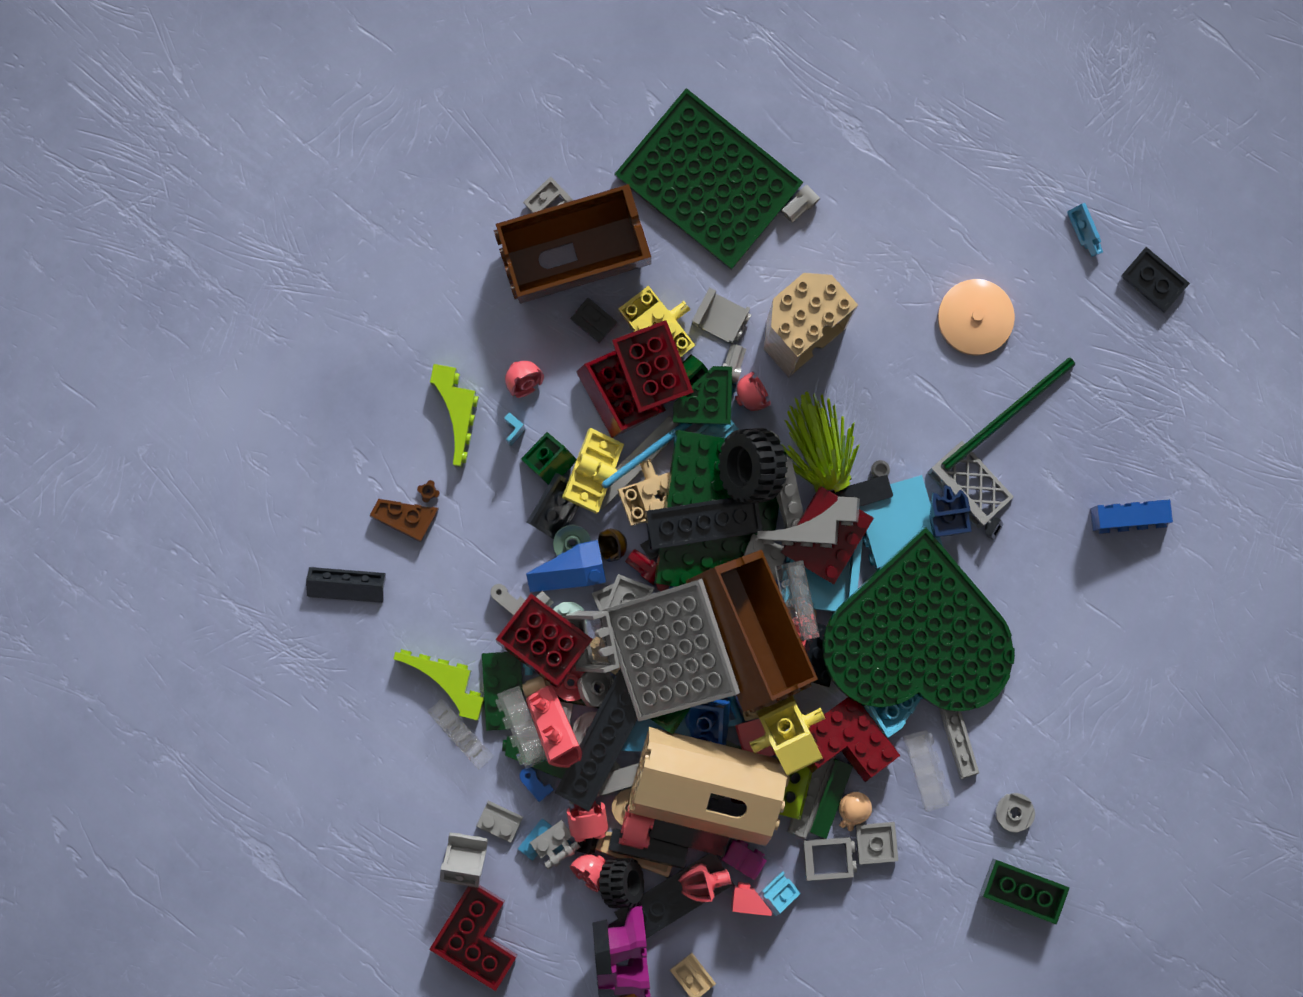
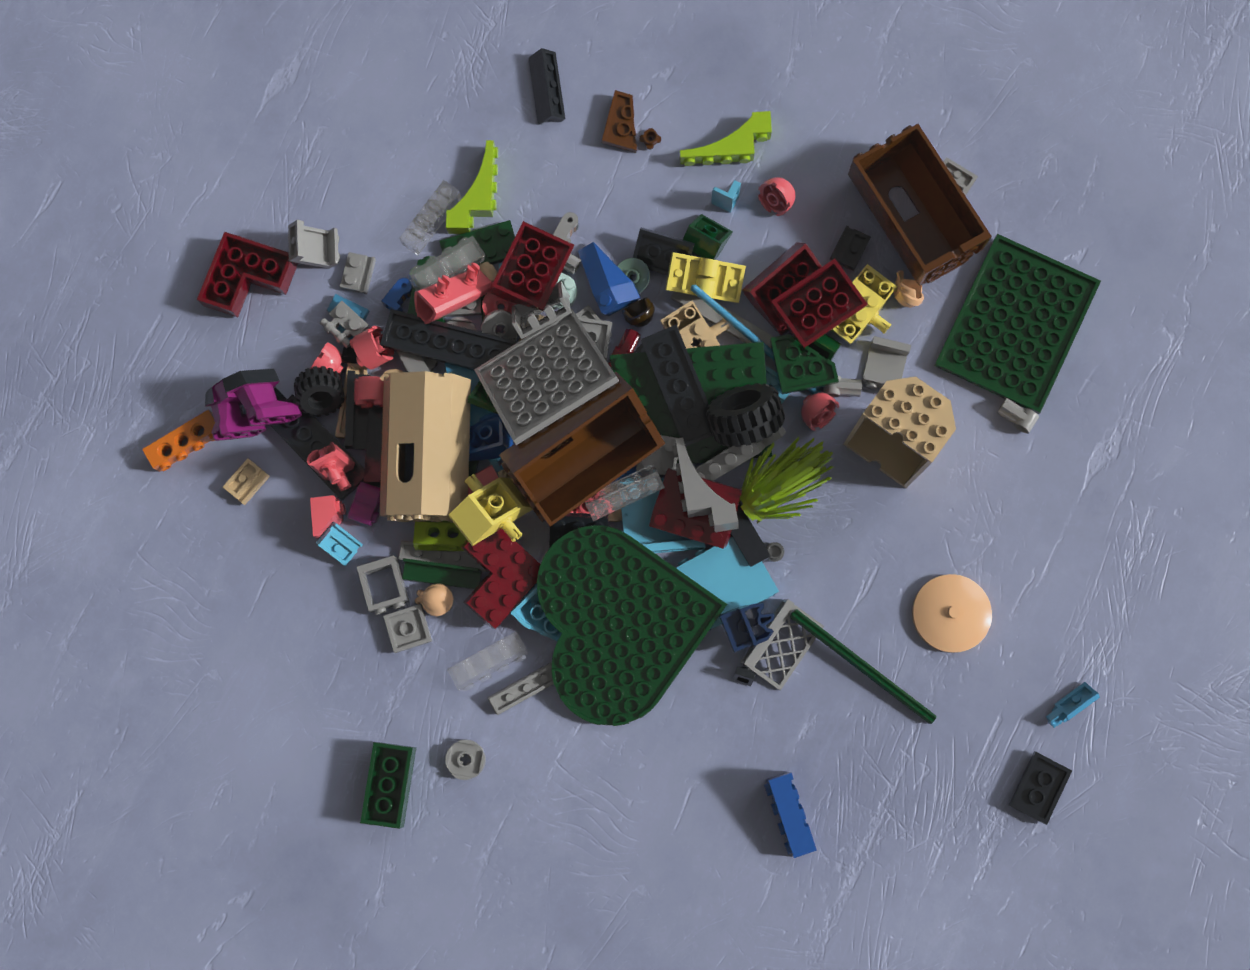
camera: 85 degrees right, 5 degrees down
(653, 275) = (908, 291): none -> light nougat hat

